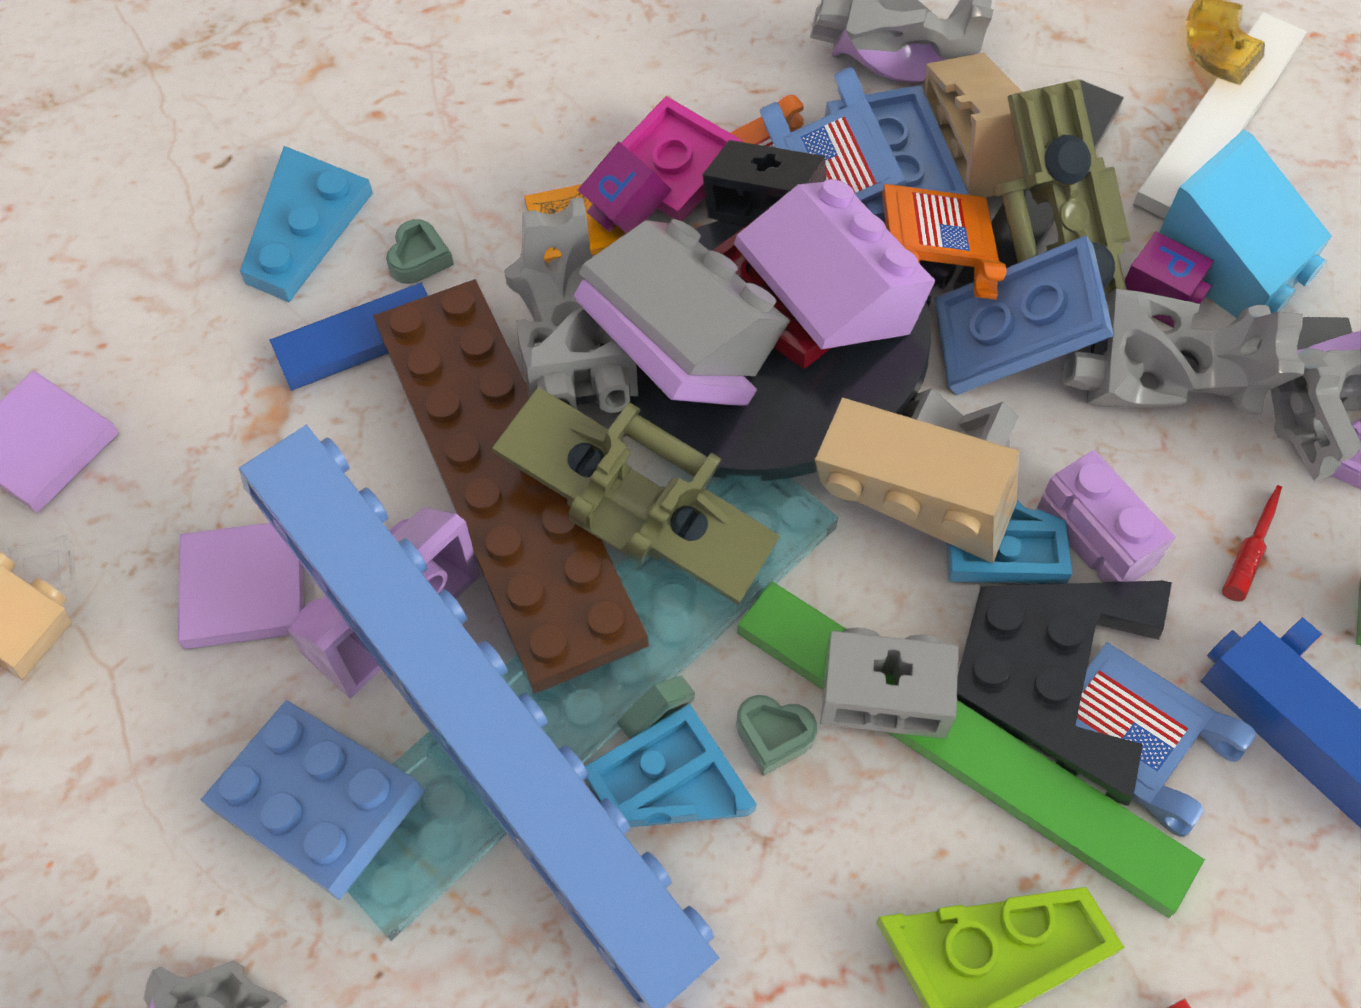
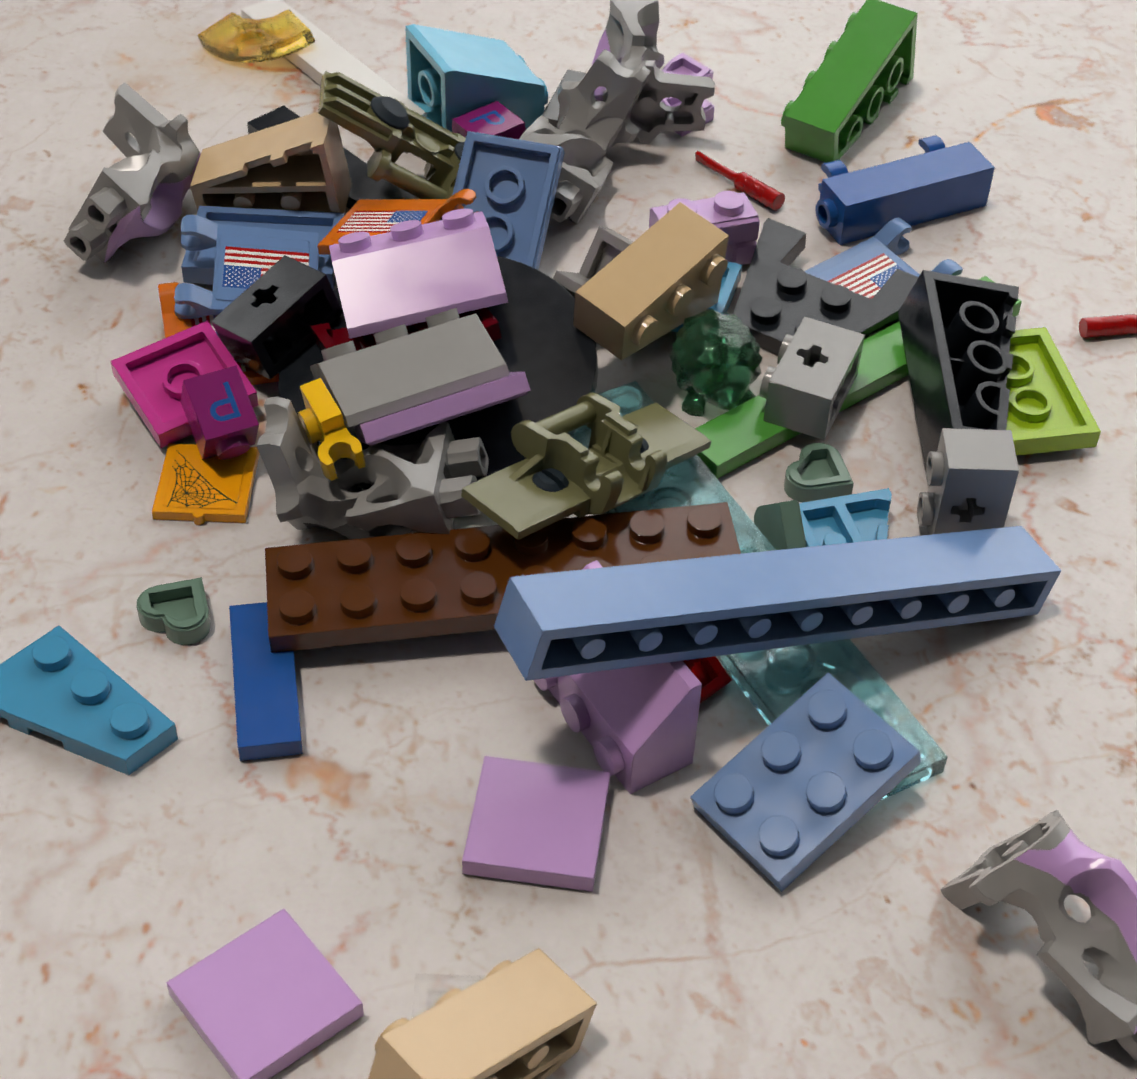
camera: 75 degrees left, 15 degrees down
(567, 273) = (325, 423): none -> yellow plate
(756, 884) = (968, 481): none -> light grey brick
(885, 581) = (715, 361): none -> clear green animal
(986, 842) = (958, 353): none -> black wedge

